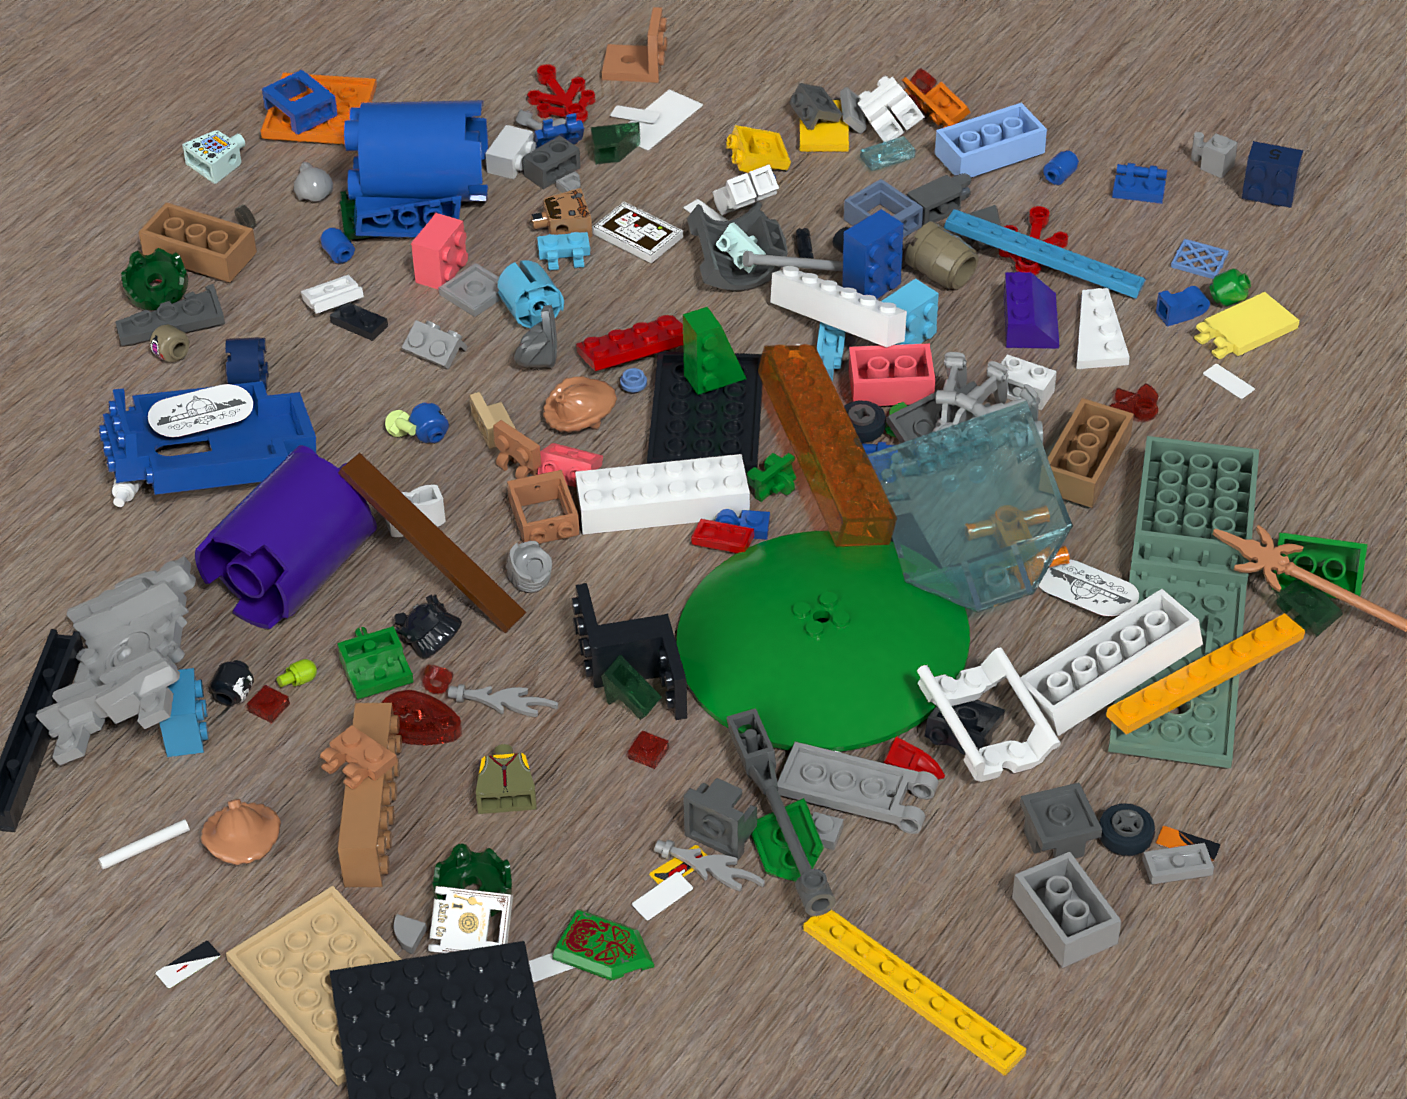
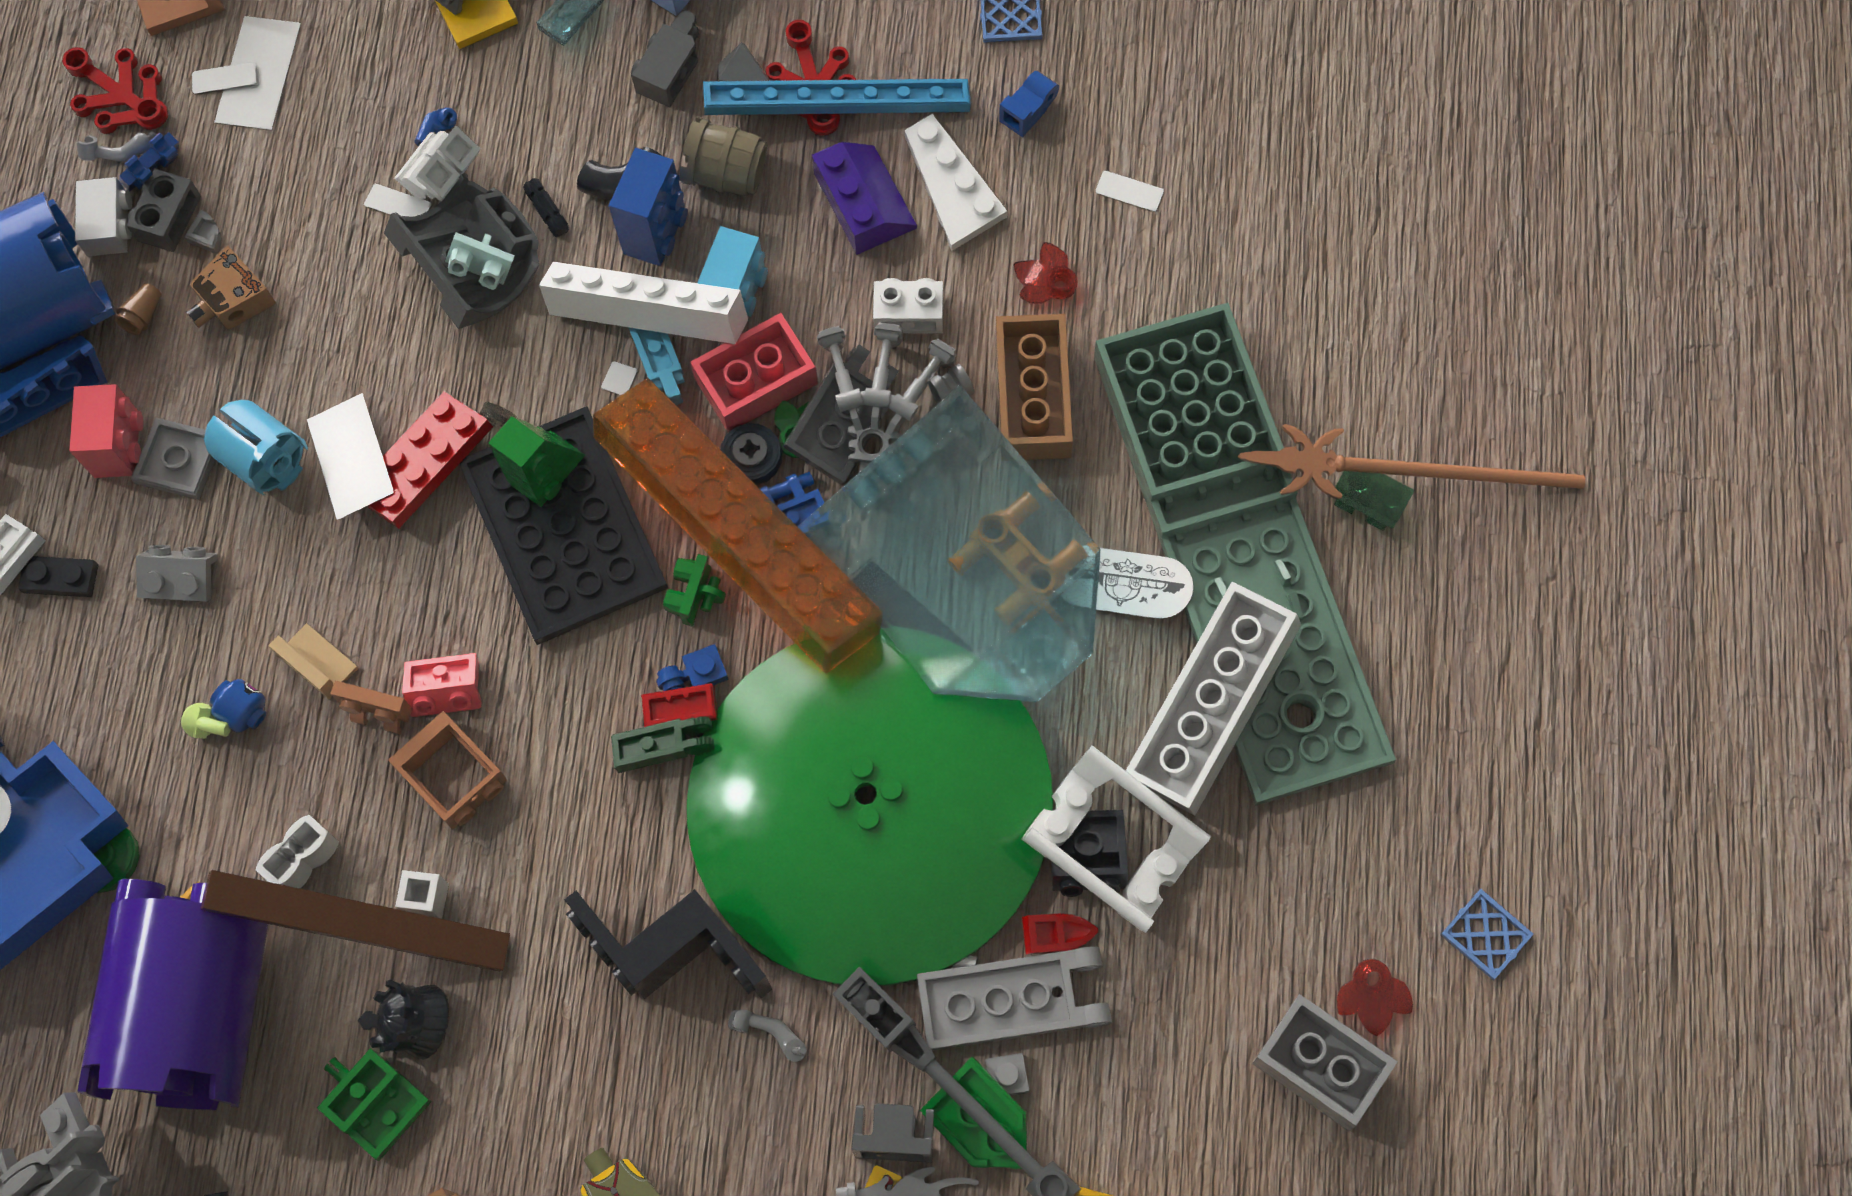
camera: 25 degrees left, 25 degrees up
(298, 673) = (288, 1160): lime cylinder -> none
(427, 730) = (460, 1133): clear red piece -> none
(439, 674) = (458, 1084): clear red tile -> none
(486, 556) = (422, 893): none -> white brick
(499, 206) = (138, 310): none -> medium nougat cone
(507, 697) = (551, 1069): light grey piece -> none
(528, 566) = (478, 868): light grey hair -> none
(539, 344) = (310, 521): dark grey hair -> none
(562, 246) = (250, 338): medium azure plate -> none
(578, 404) = (407, 590): nougat piece -> none
(588, 324) = (350, 456): none -> white sticker
(614, 142) = (225, 141): clear green slope -> none
(625, 683) = (694, 994): clear green slope -> none
(633, 380) = (446, 508): medium blue plate -> none
(637, 232) = (329, 273): tile -> none
(648, 749) = (754, 1061): clear red plate -> none
(656, 721) = (790, 1044): none -> light grey piece
(661, 493) = (577, 681): white brick -> none
(698, 548) = (660, 743): none -> dark green hinge
(757, 149) = (411, 77): yellow plate -> none
(782, 261) = (505, 281): light grey bar -> none
(882, 193) = (643, 127): sand blue window -> none
(1059, 820) = (1259, 942): dark grey panel -> none
(1127, 829) = (1336, 898): black wheel -> none
(1132, 898) = (1374, 1002): none -> clear red plate
(1174, 838) = (1395, 888): sticker -> none
(1178, 863) = (1403, 929): light grey plate -> none
(1205, 673) = (1316, 657): light orange plate -> none
(1224, 905) = (1510, 954): none -> medium blue window
(1230, 287) = (1072, 54): green head -> none
(1246, 326) = (1113, 98): light yellow tile -> none
(1328, 558) = (1374, 421): green slope -> none

